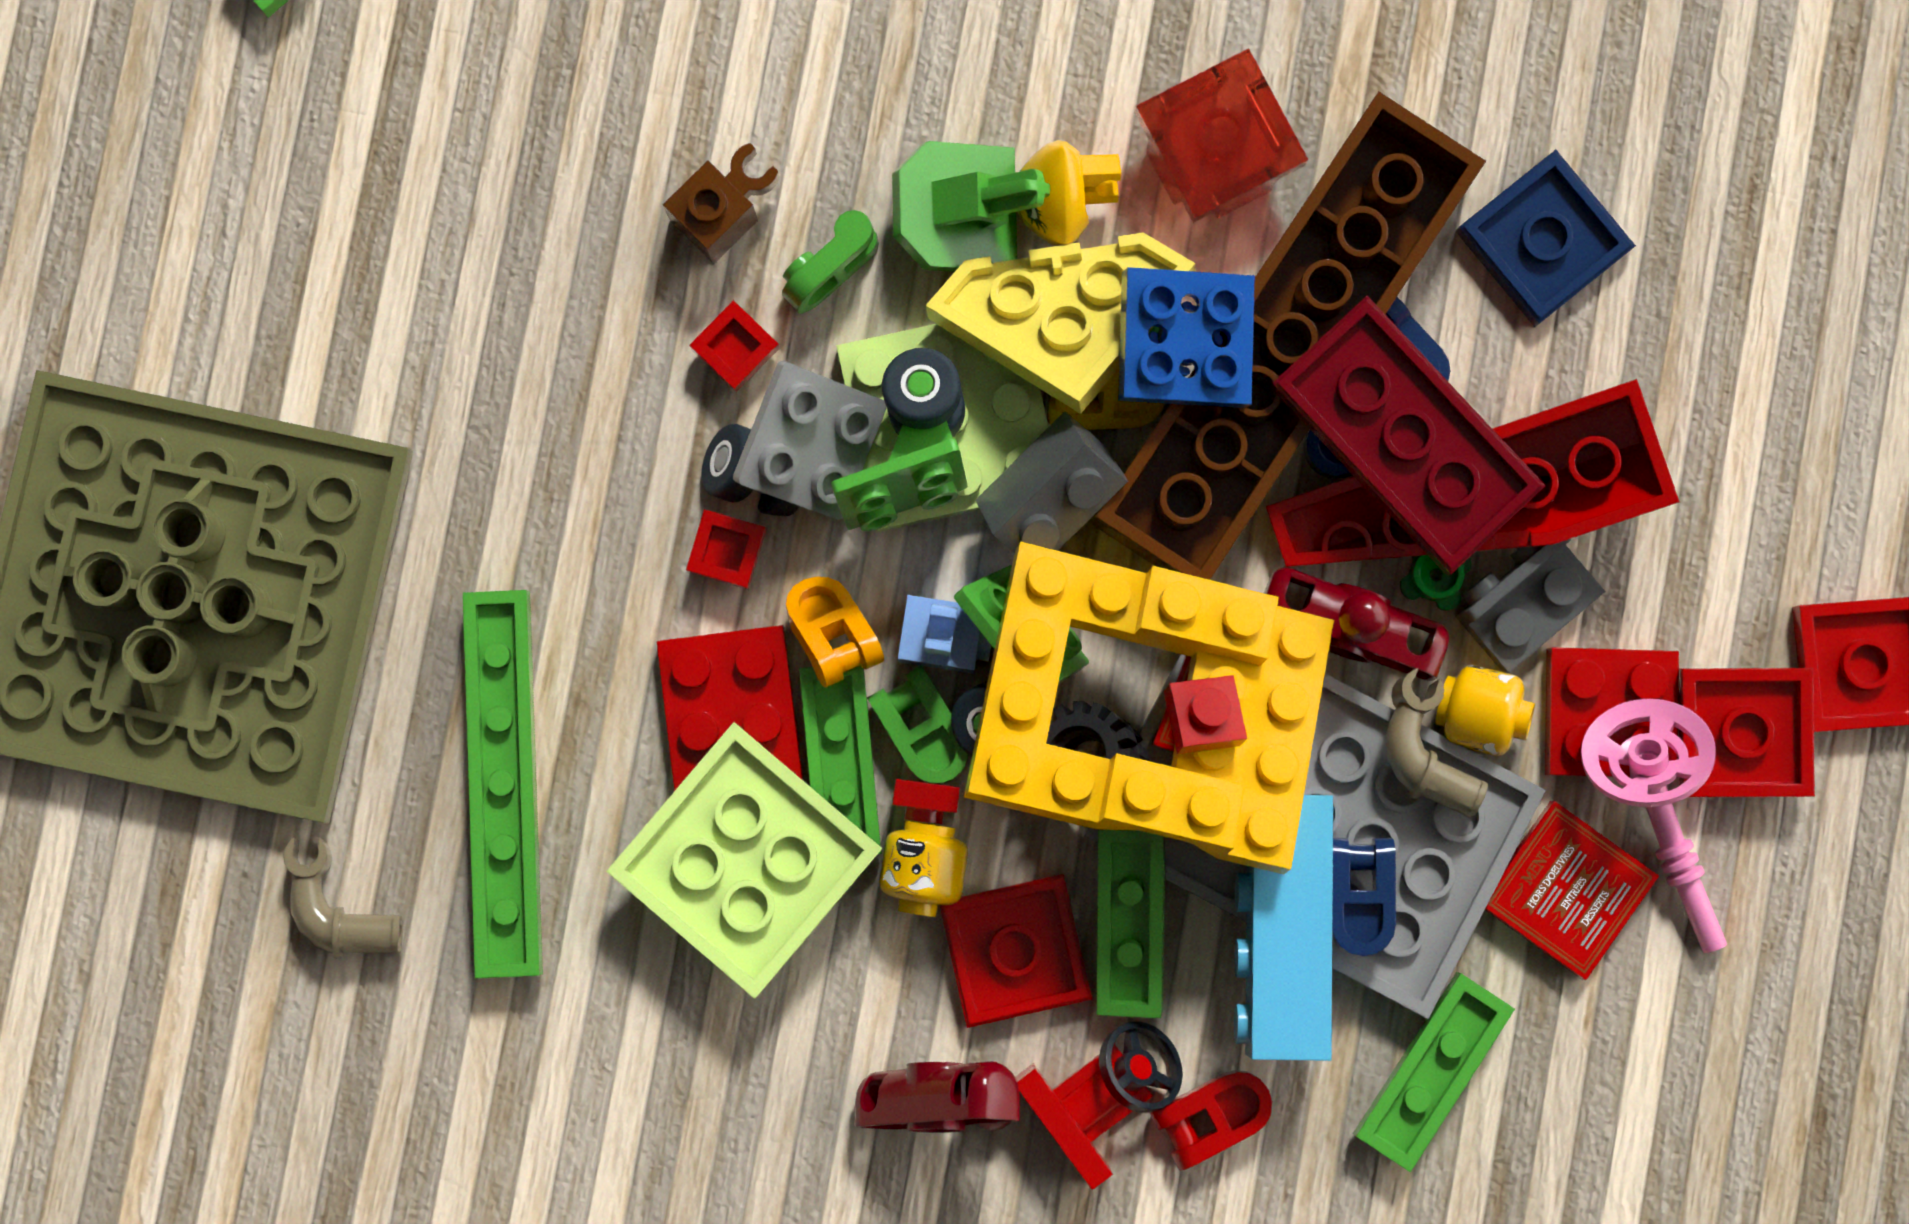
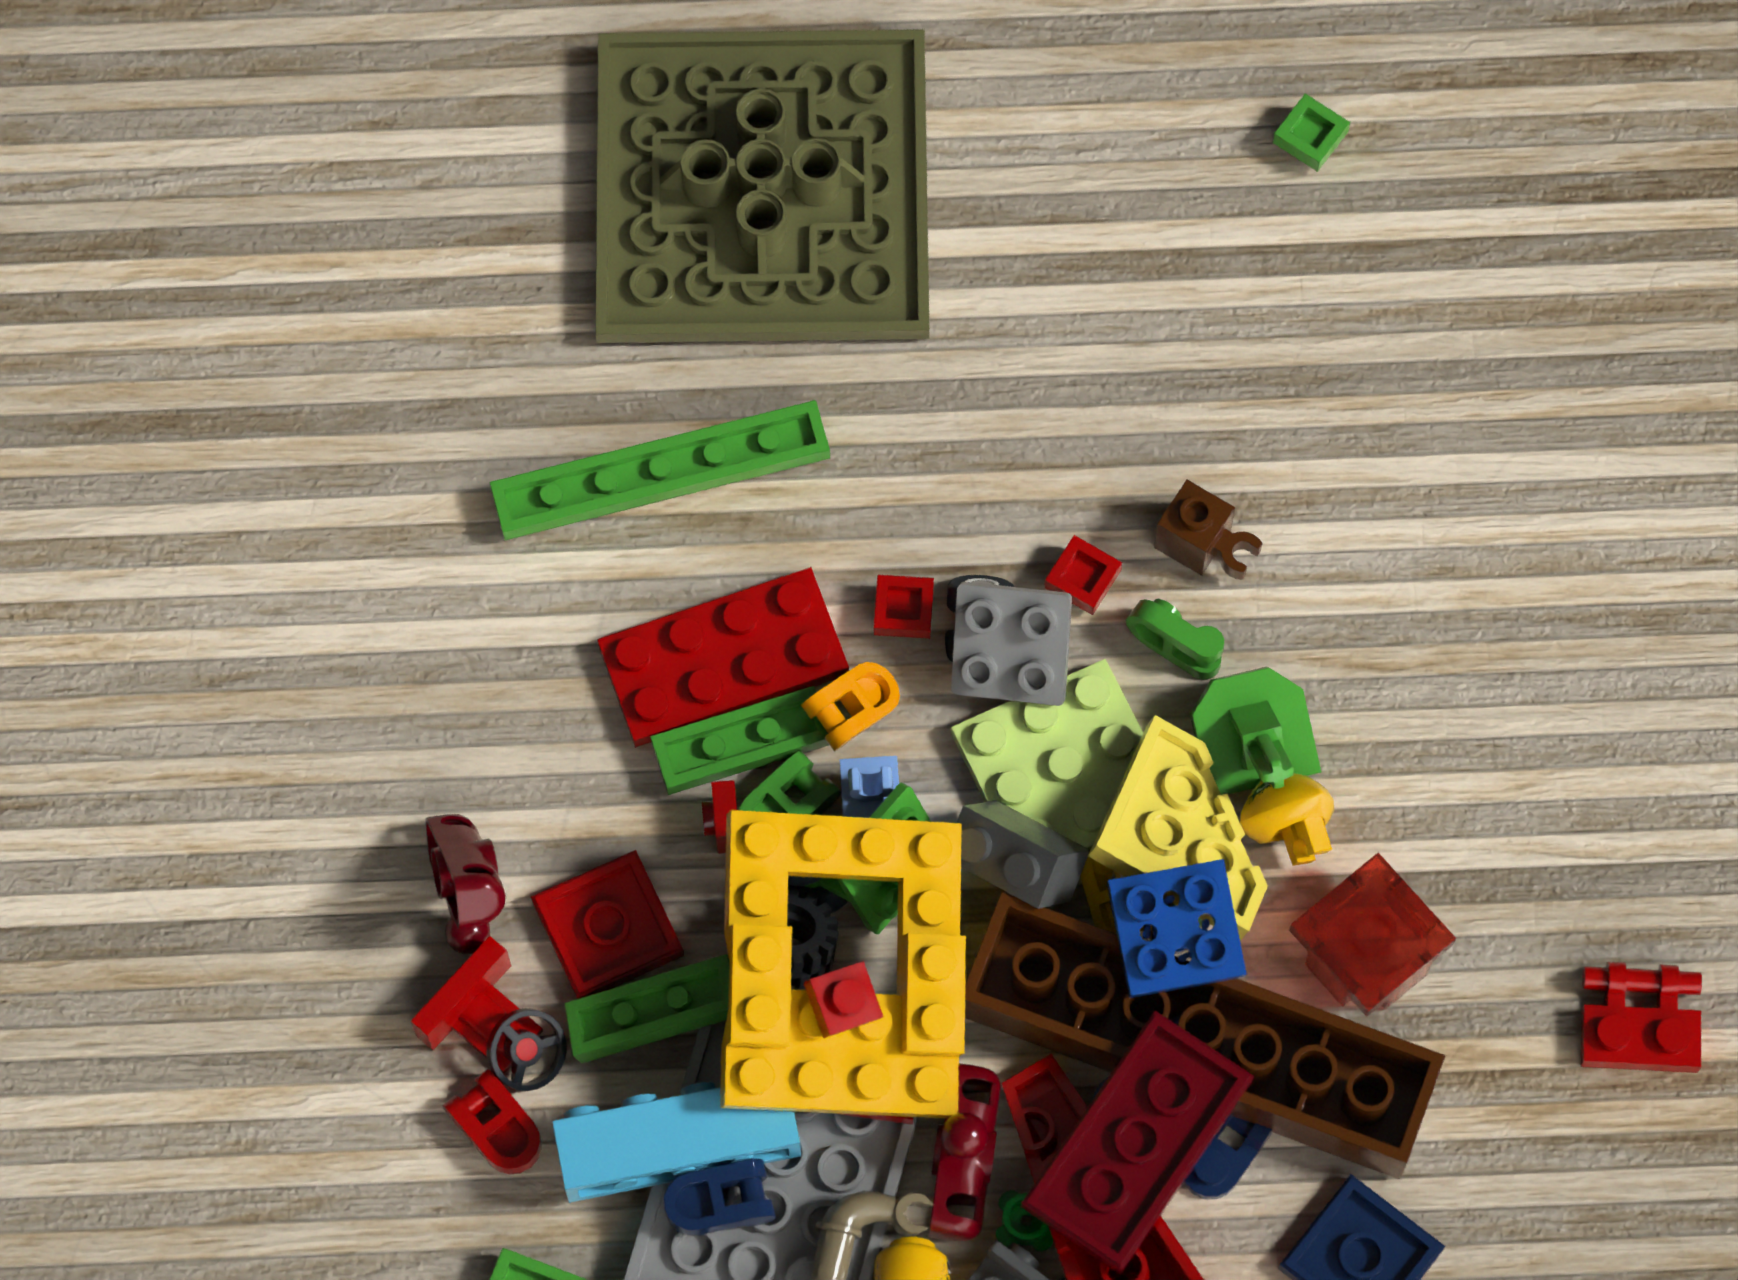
camera: 80 degrees right, 15 degrees down
(330, 927) = (508, 361): dark tan piece -> none
(744, 860) = (636, 671): yellowish green plate -> none
(923, 867) = (663, 826): yellow head -> none
(926, 463) = (1009, 736): bright green plate -> none

